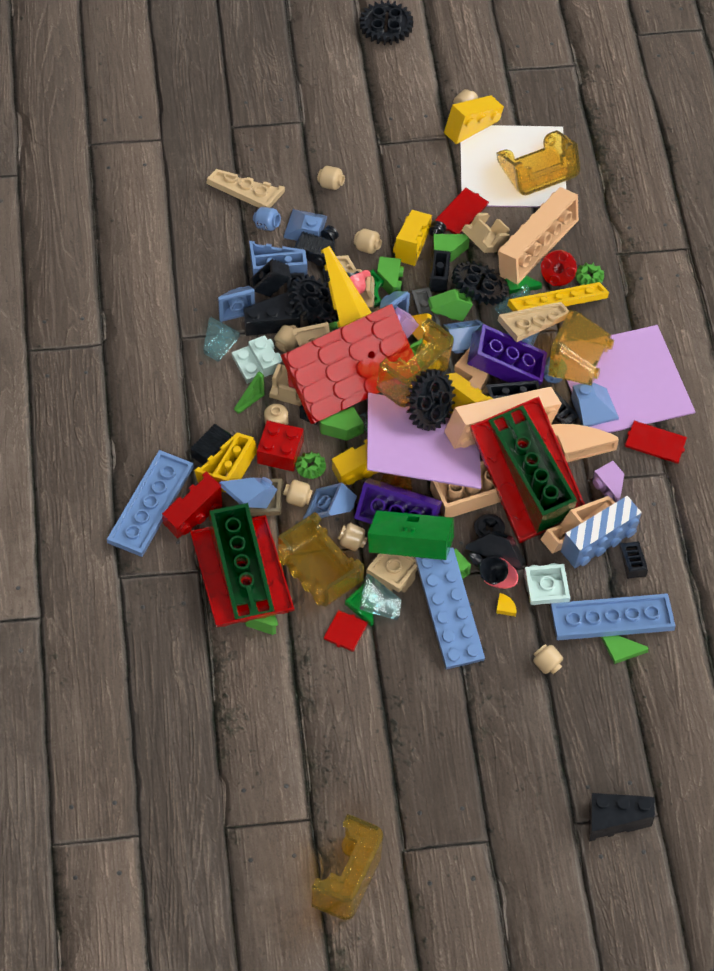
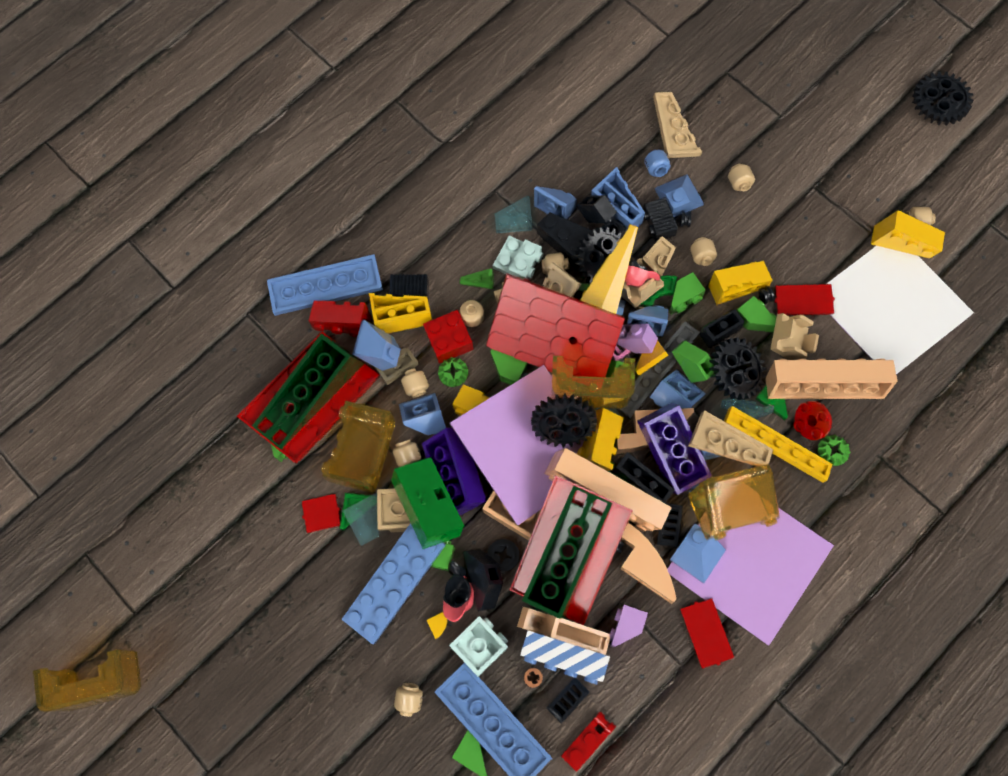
camera: 60 degrees right, 15 degrees up
(544, 167) = (910, 327): clear yellow windscreen -> none
(598, 564) = (537, 672): none -> nougat bush
(673, 567) = (587, 742): none -> red plate

